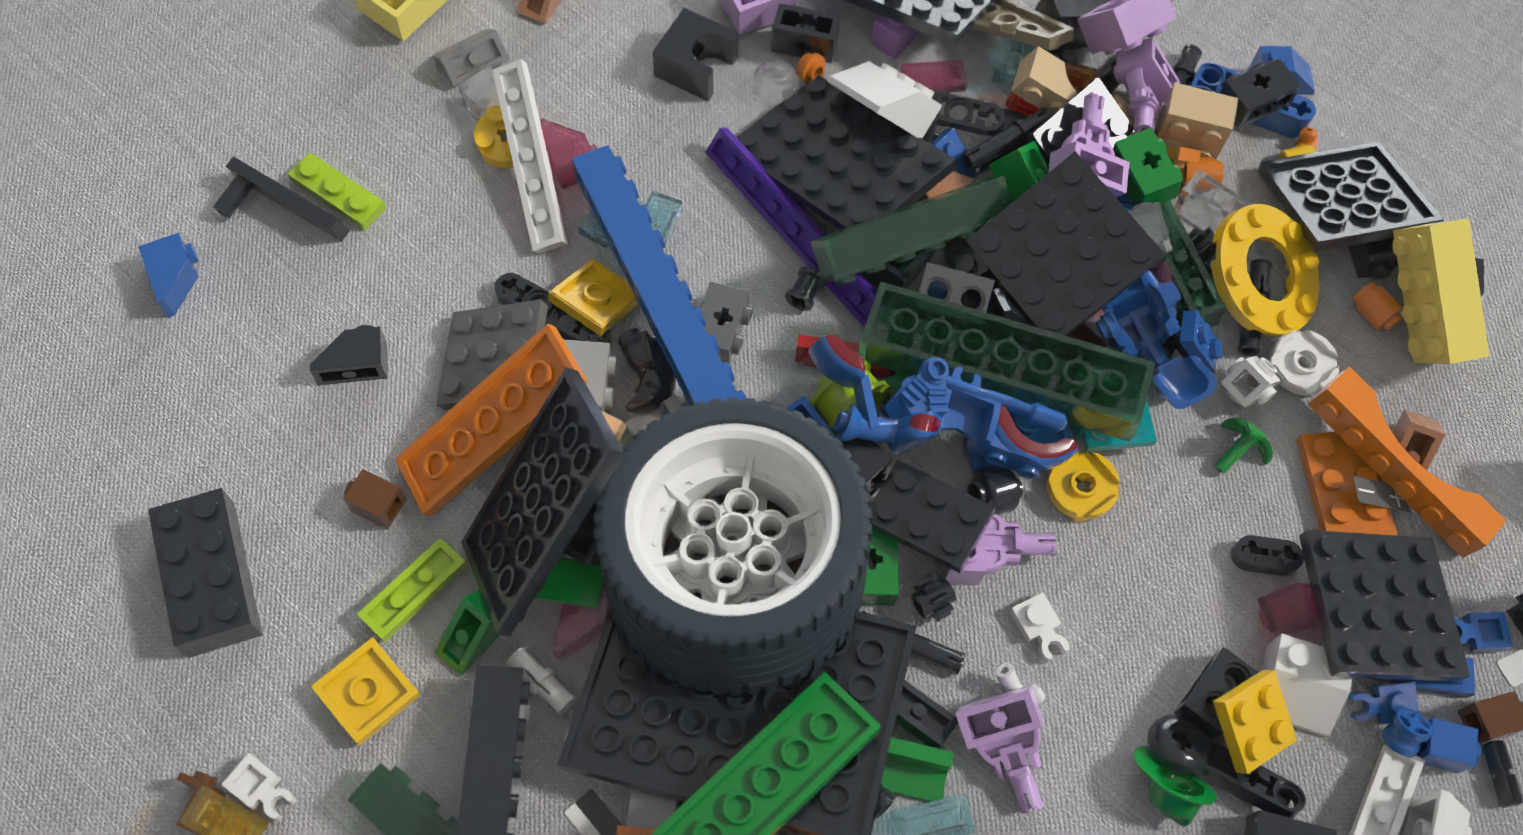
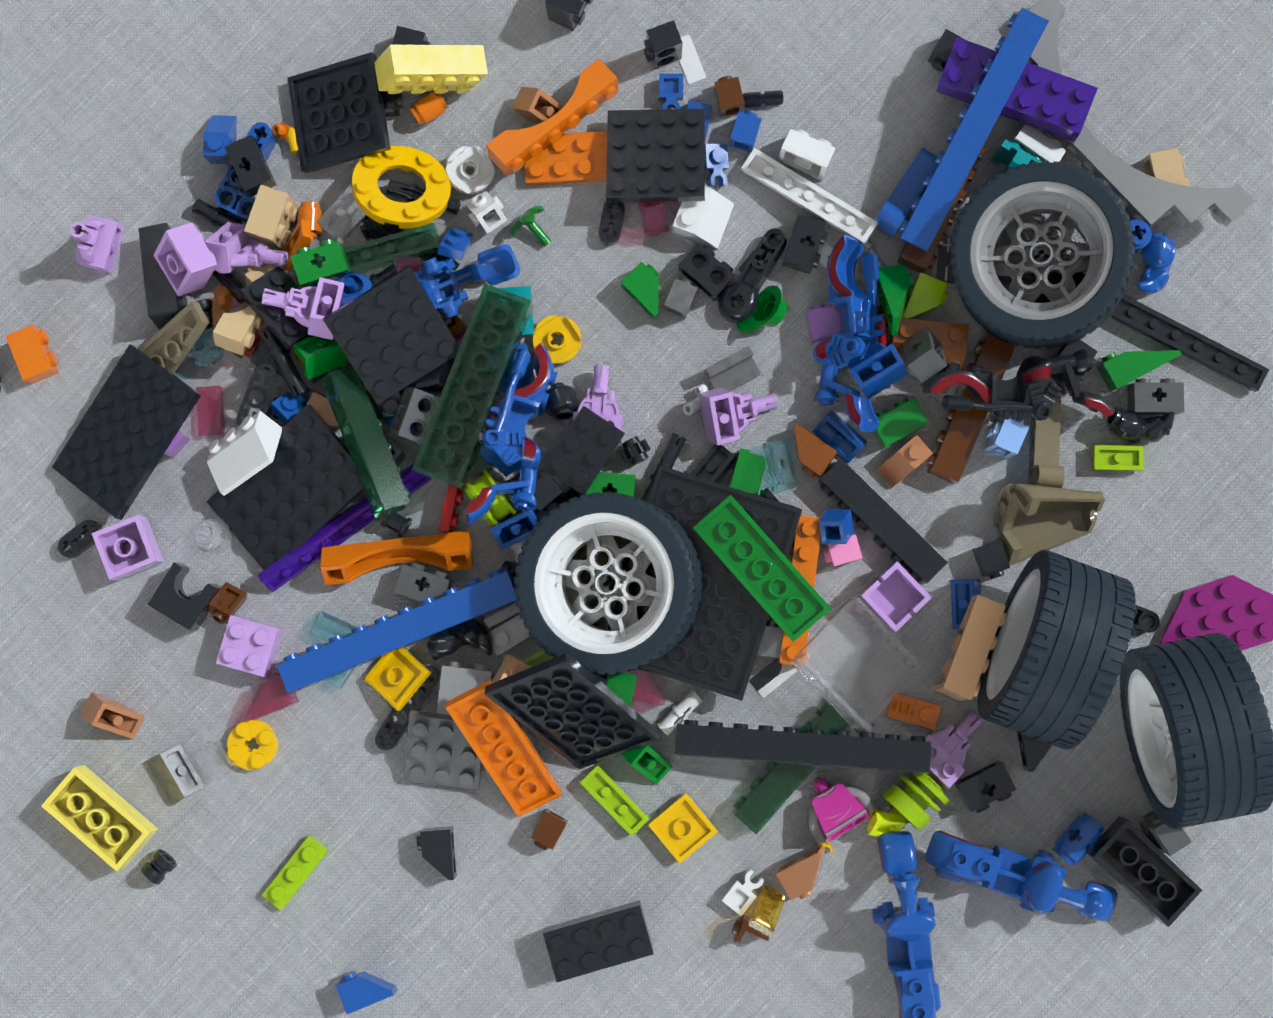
camera: 80 degrees left, 20 degrees up
(248, 178) = (285, 940): black piece -> none
(350, 37) = (158, 866): none -> black wheel
(529, 157) = (278, 725): white plate -> none
(635, 124) = (249, 646): none -> lavender brick
(688, 99) = (226, 603): none -> reddish brown bracket
(770, 348) = (445, 550): none -> orange arch
(804, 31) = (171, 509): black brick -> none
(810, 66) = (200, 506): orange plate -> none
(1038, 621) = (651, 382): white plate -> none
(1073, 742) = (733, 370): none -> flat silver panel
(1152, 221) = (370, 269): clear brick -> none
(1172, 657) = (680, 297): none -> flat silver brick
(1178, 602) = (643, 287): none -> green slope
(1255, 721) = (728, 252): yellow plate -> none
(1379, 494) = (574, 140): dark grey sticker -> none
(1407, 732) = (737, 156): blue wheel -> none

